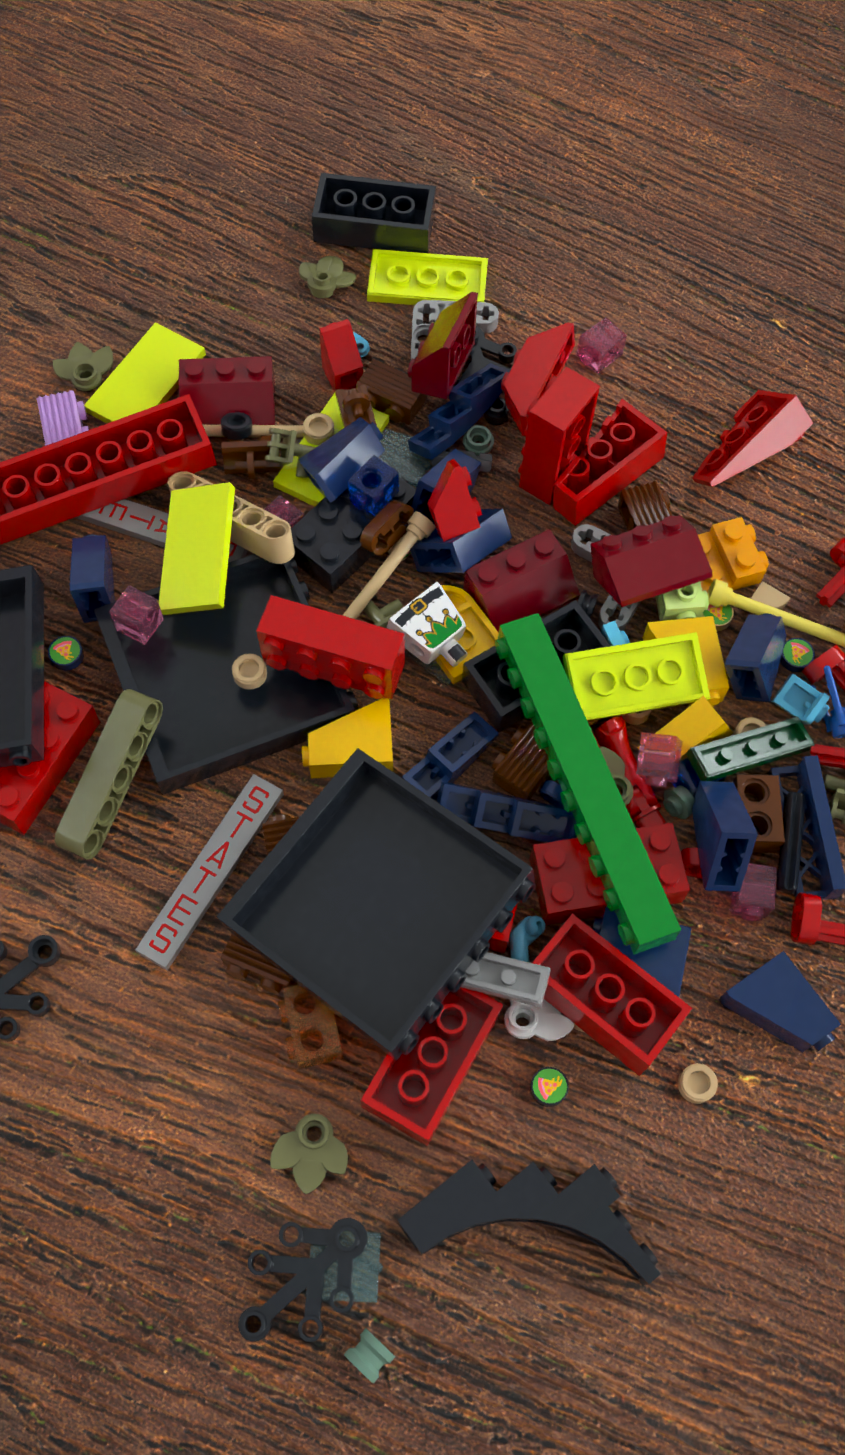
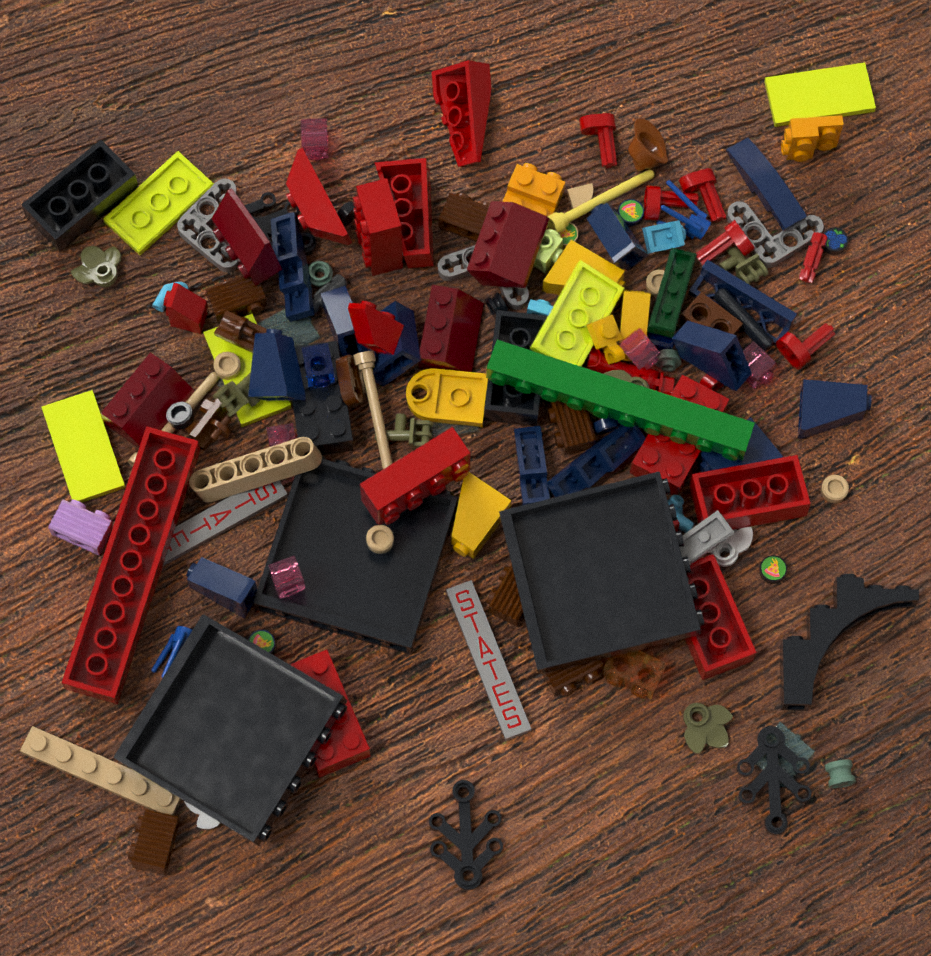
camera: 50 degrees left, 5 degrees up
(84, 366) = (33, 477): olive plate -> none
(108, 774) = (381, 671): olive beam -> none
(197, 549) = (269, 505): neon yellow tile -> none
(431, 627) = (441, 408): torso -> none
(644, 715) = (605, 335): none -> yellow plate

